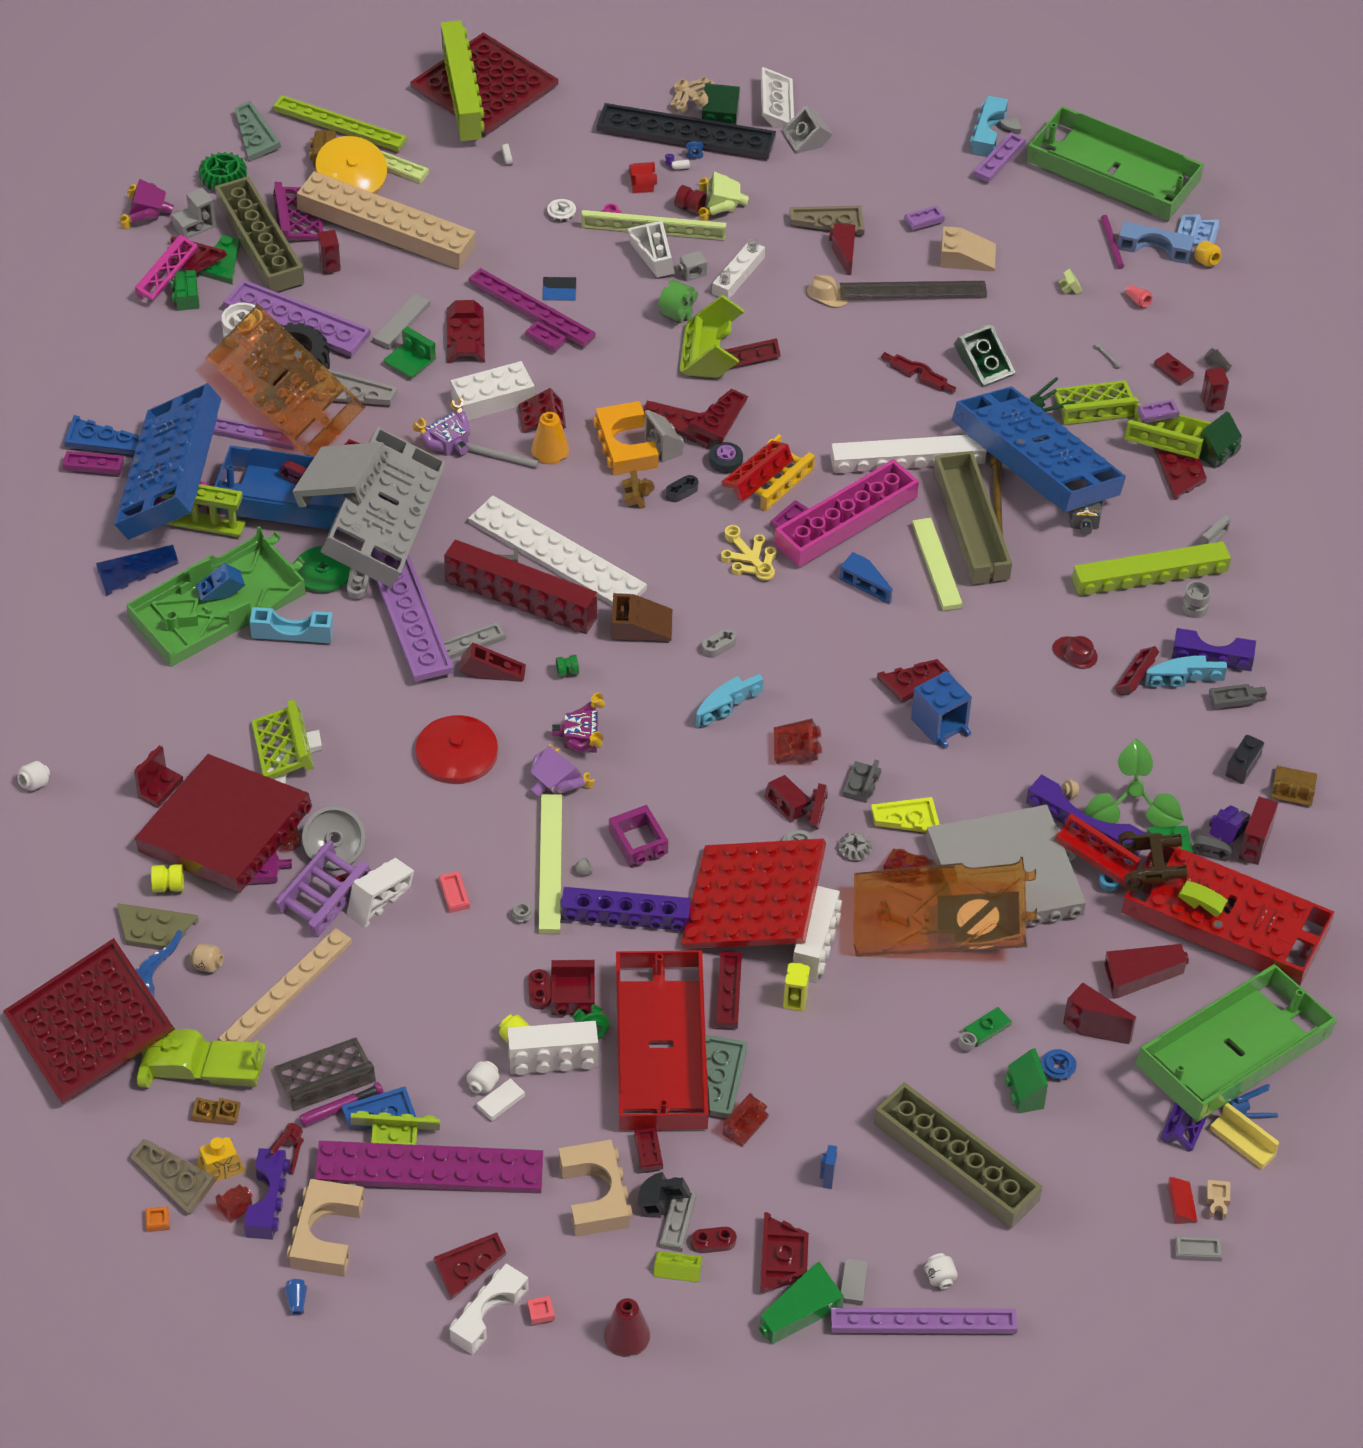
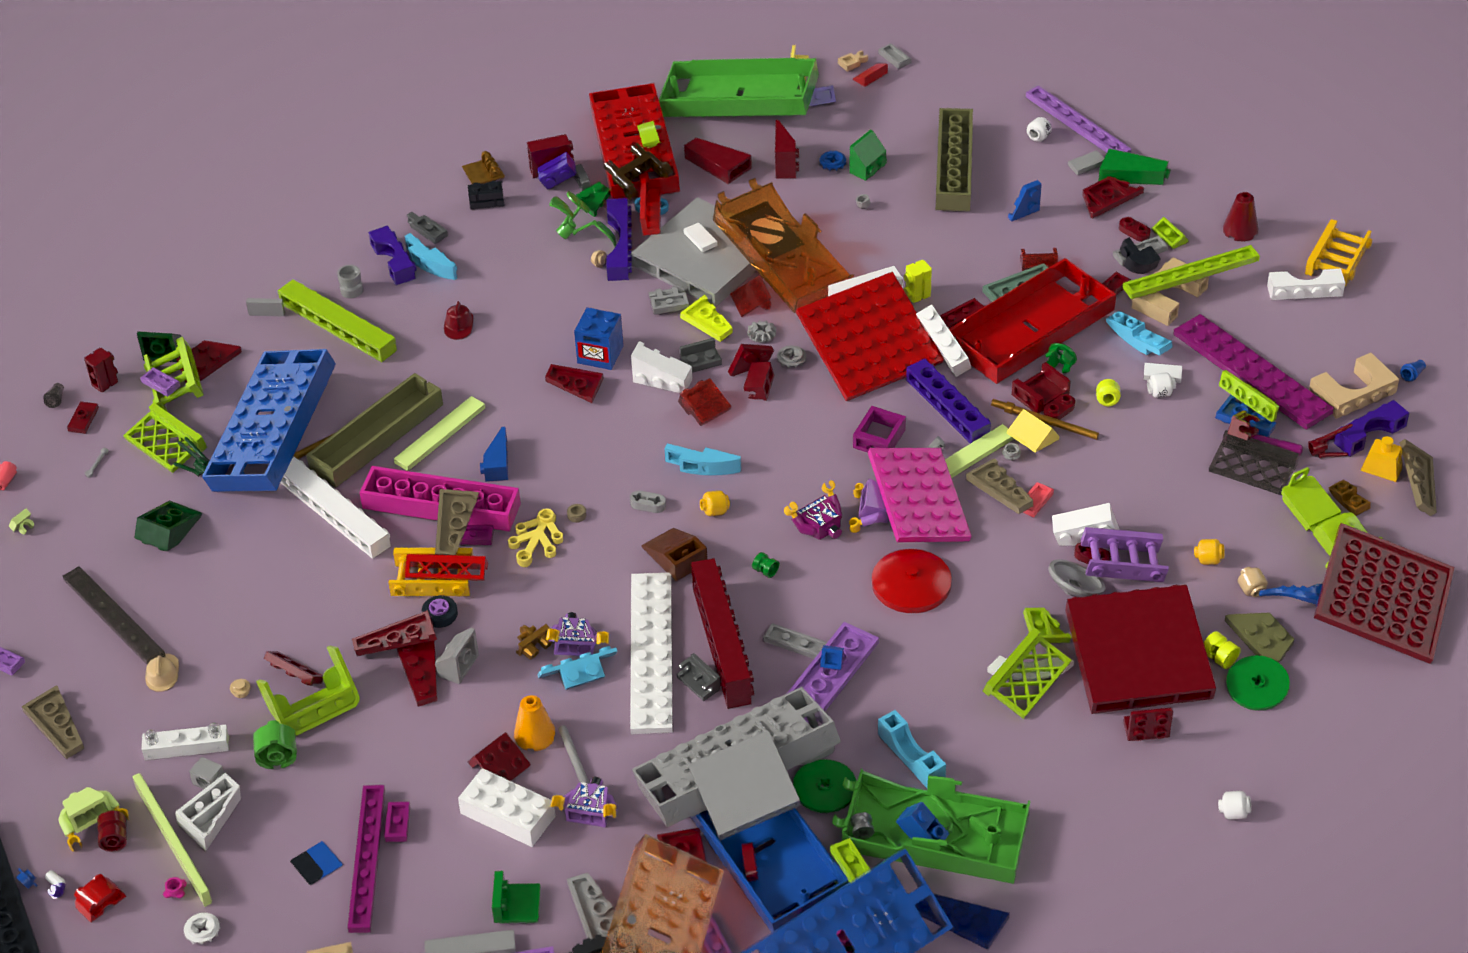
camera: 125 degrees left, 5 degrees down
(130, 879) = (1266, 695): none -> green piece
(157, 1219) = (1454, 471): orange tile -> none
(234, 1202) = (1397, 433): clear red brick -> none
(258, 552) = (862, 825): none -> flat silver wheel
(267, 955) = (1209, 551): none -> yellow head
(288, 988) = (1223, 529): tan plate -> none
(322, 790) = (1048, 626): none -> lime wing
(358, 1076) = (1241, 426): none -> hinge
(420, 628) = (832, 657): none -> blue tile
(465, 330) = (445, 886): dark red piece -> none
(468, 1262) = (1293, 315): dark red wing -> none
(490, 665) = (815, 608): dark red slope -> none
(492, 870) = (996, 483): none -> dark tan wing
(517, 1361) = (1326, 242): none -> yellow fence
(525, 942) = (1032, 432): none -> light yellow slope
(532, 800) = (919, 495): none -> dark pink plate
(541, 1310) = (1276, 264): coral plate -> none
(553, 1047) = (1103, 357): white brick -> none
(562, 1115) = (1135, 334): none -> medium azure slope
(574, 952) = (1010, 408): none -> pearl gold bar
(582, 500) = (579, 671): none -> medium azure bracket
(586, 1202) = (1191, 272): none -> lime plate
(613, 507) = (575, 636): none -> torso
(624, 457) = (472, 705): light orange arch -> none
(668, 676) = (715, 503): none -> yellow head
(682, 488) = (500, 619): black beam -> none
(720, 944) = (944, 340): none -> white arch
(753, 595) = (576, 513): none -> dark tan tile
(764, 321) = (240, 688): none -> tan plate
(800, 490) = (453, 517): none -> dark tan wing
(843, 244) = (89, 688): dark red slope -> none
(864, 733) = (659, 371): none -> white wedge
(926, 377) = (218, 564): dark red piece -> none
(958, 800) = (668, 300): none -> light grey plate
(966, 250) = (31, 609): tan slope -> none
(988, 1025) = (838, 202): green plate -> none
(1008, 857) = (700, 237): none -> white tile
(1137, 670) = (451, 280): dark red plate -> none

